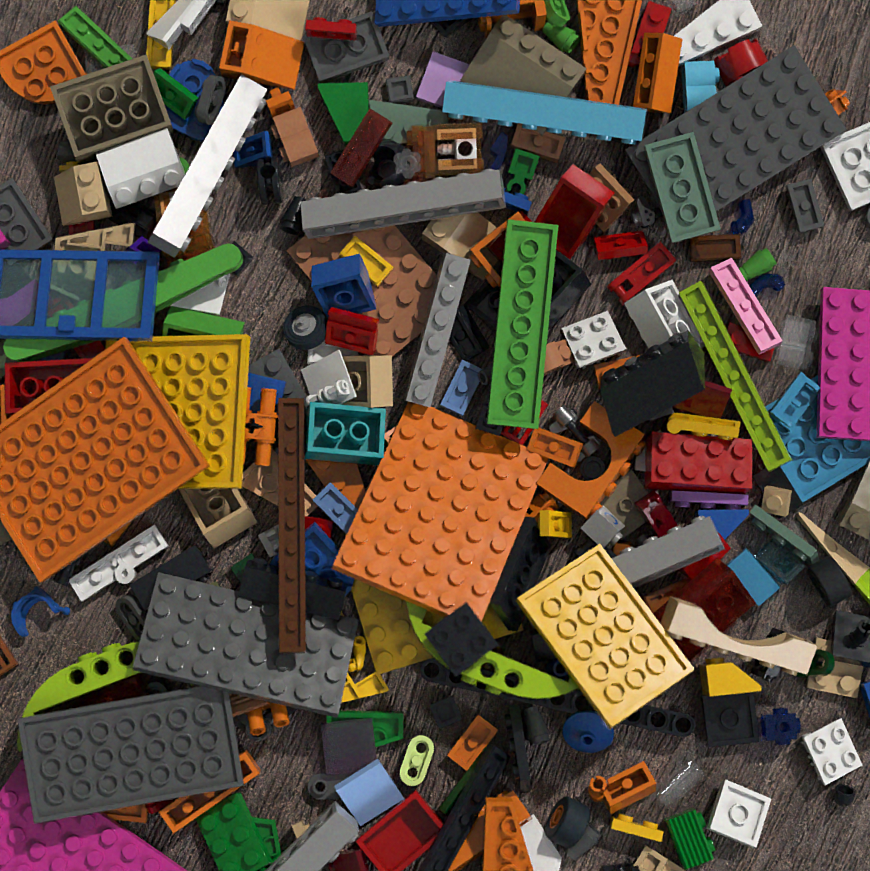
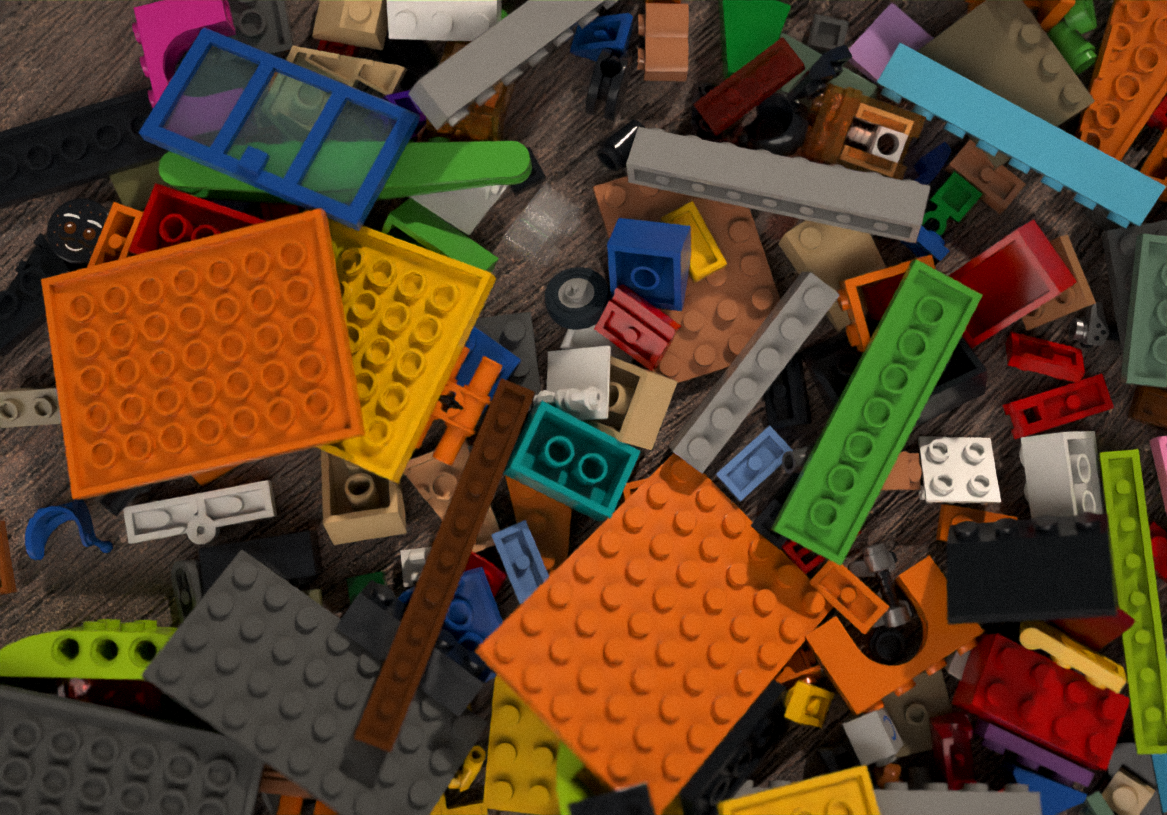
camera: 25 degrees right, 0 degrees up
(264, 290) = (542, 227): none -> clear brick
(401, 159) = (797, 122): clear plant -> none
(406, 115) = (824, 70): none -> black slope

